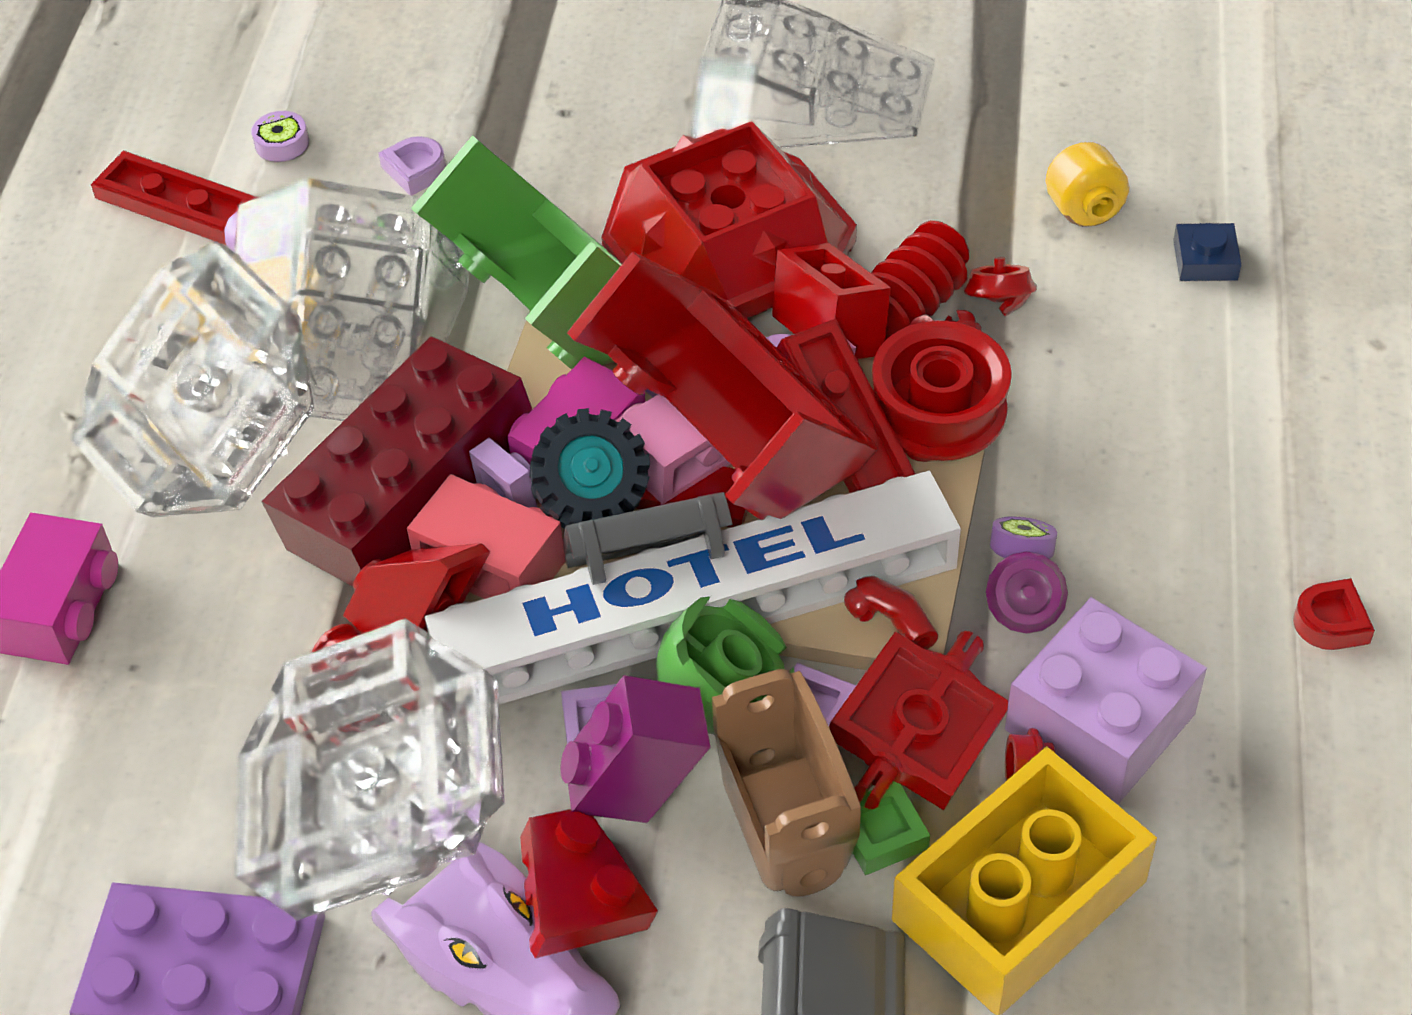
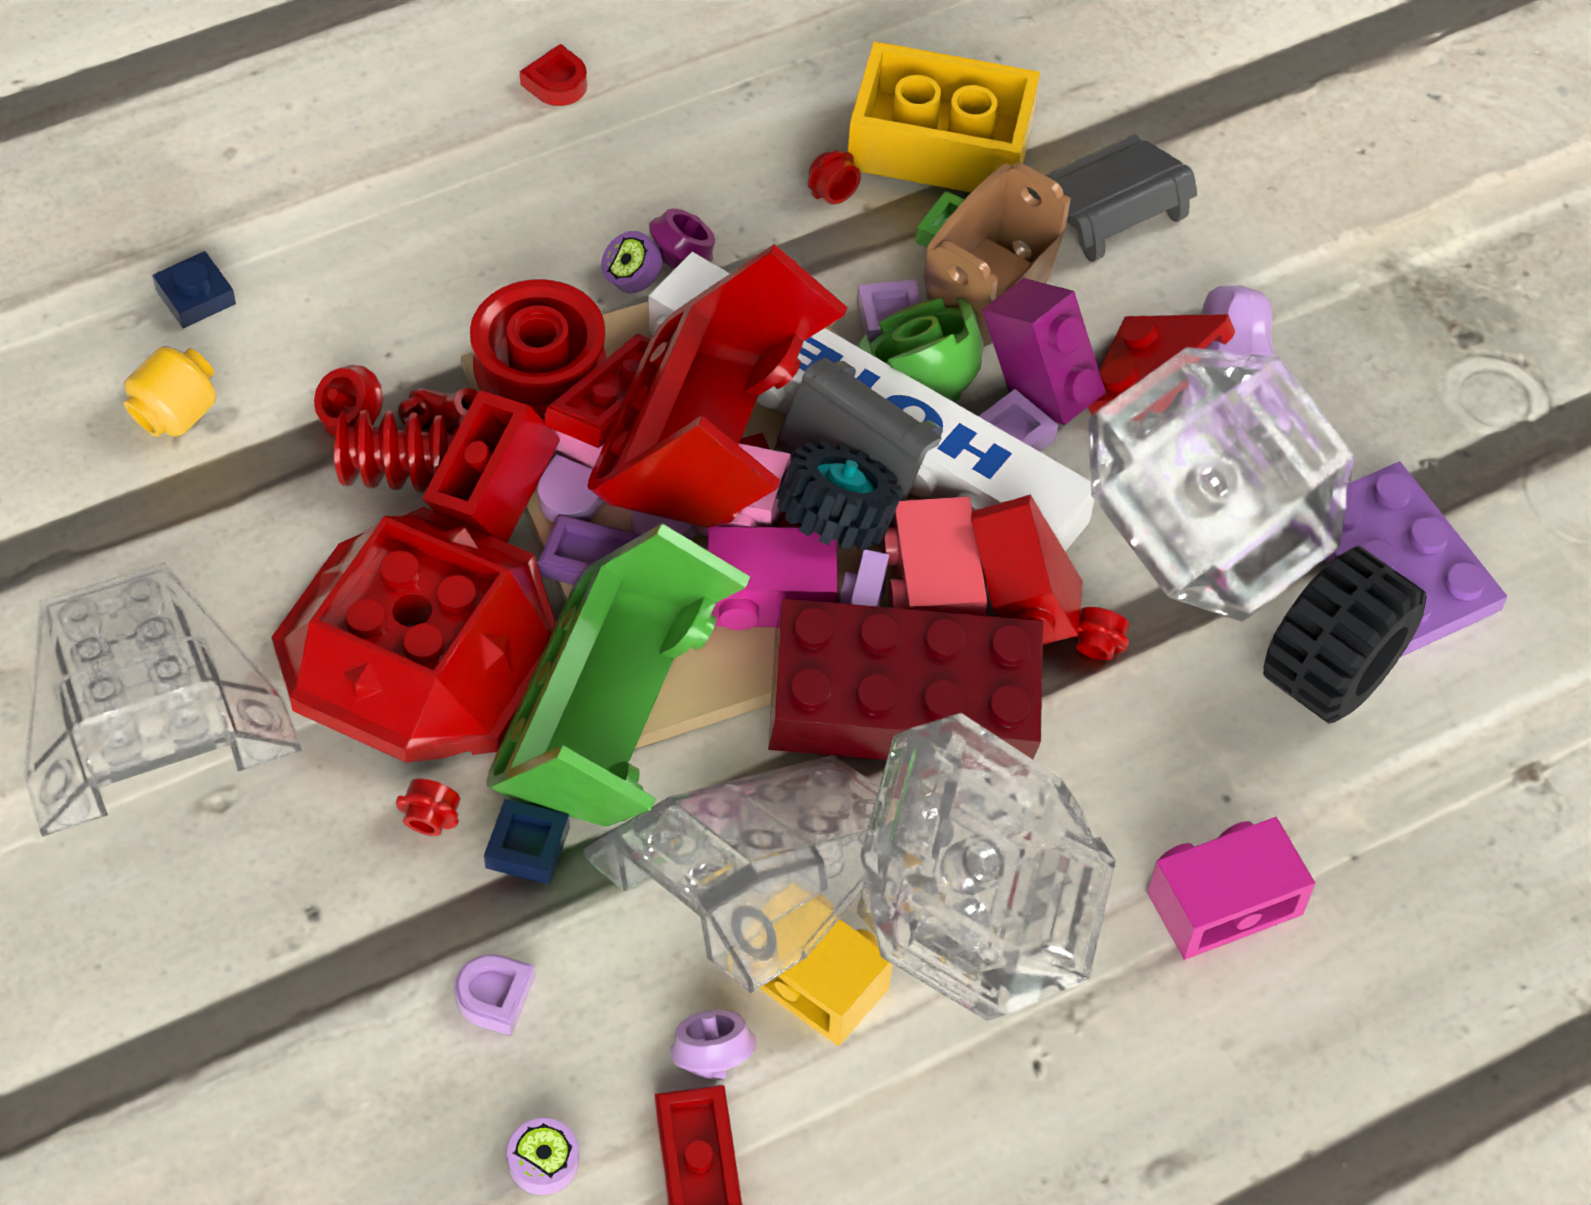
camera: 130 degrees left, 5 degrees up
(133, 780) = (1344, 634): none -> black tyre
(580, 181) = (429, 807): none -> red plate
(918, 719) = (857, 237): red plate -> none
(1106, 697) = (752, 147): lavender brick -> none

